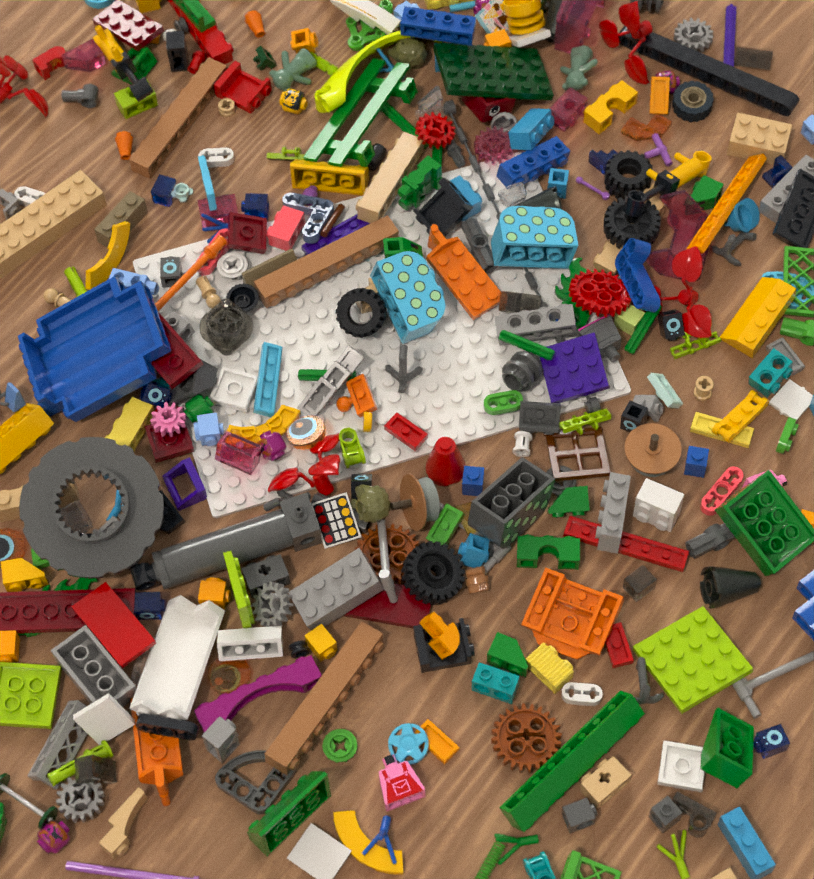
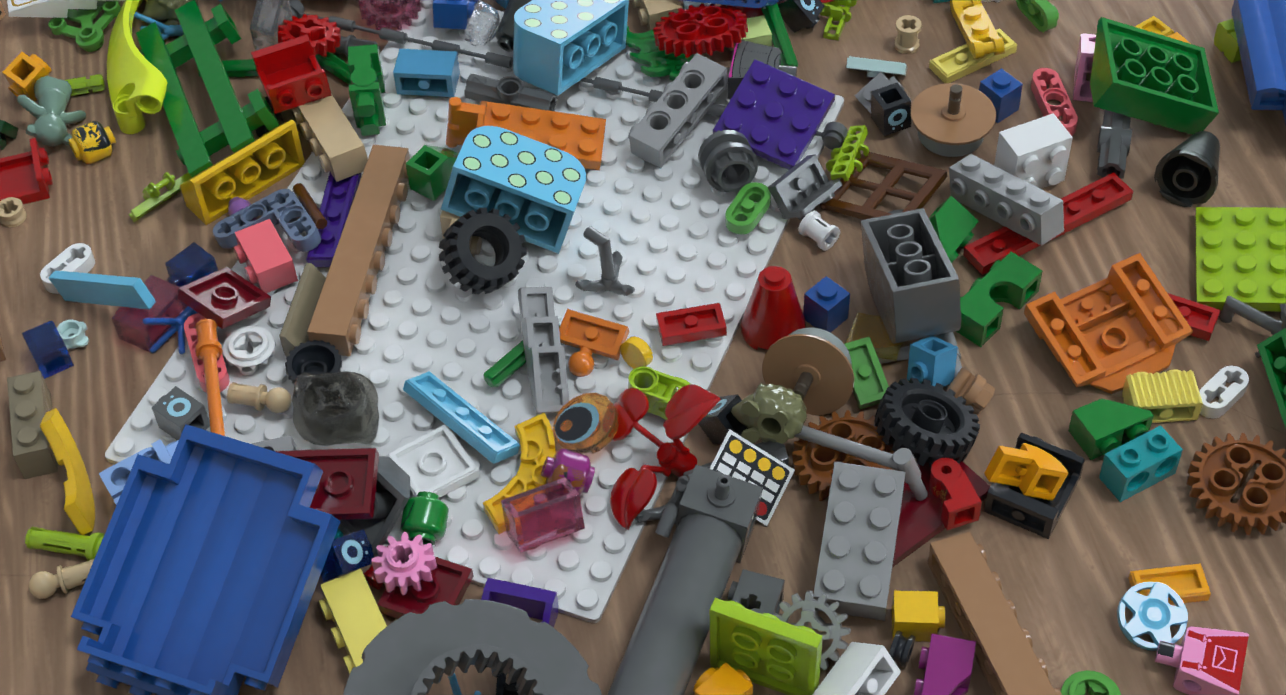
camera: 50 degrees left, 10 degrees down
(208, 429) = (467, 529): light blue brick -> none
(397, 146) = (290, 74): none -> red panel
(402, 613) = (956, 493): none -> red leg
(444, 208) = (425, 89): black panel -> none
(517, 302) = (627, 108): clear smoke plate -> none
(526, 345) = (702, 128): green axle -> none
(639, 583) = (1118, 240): clear smoke panel -> none

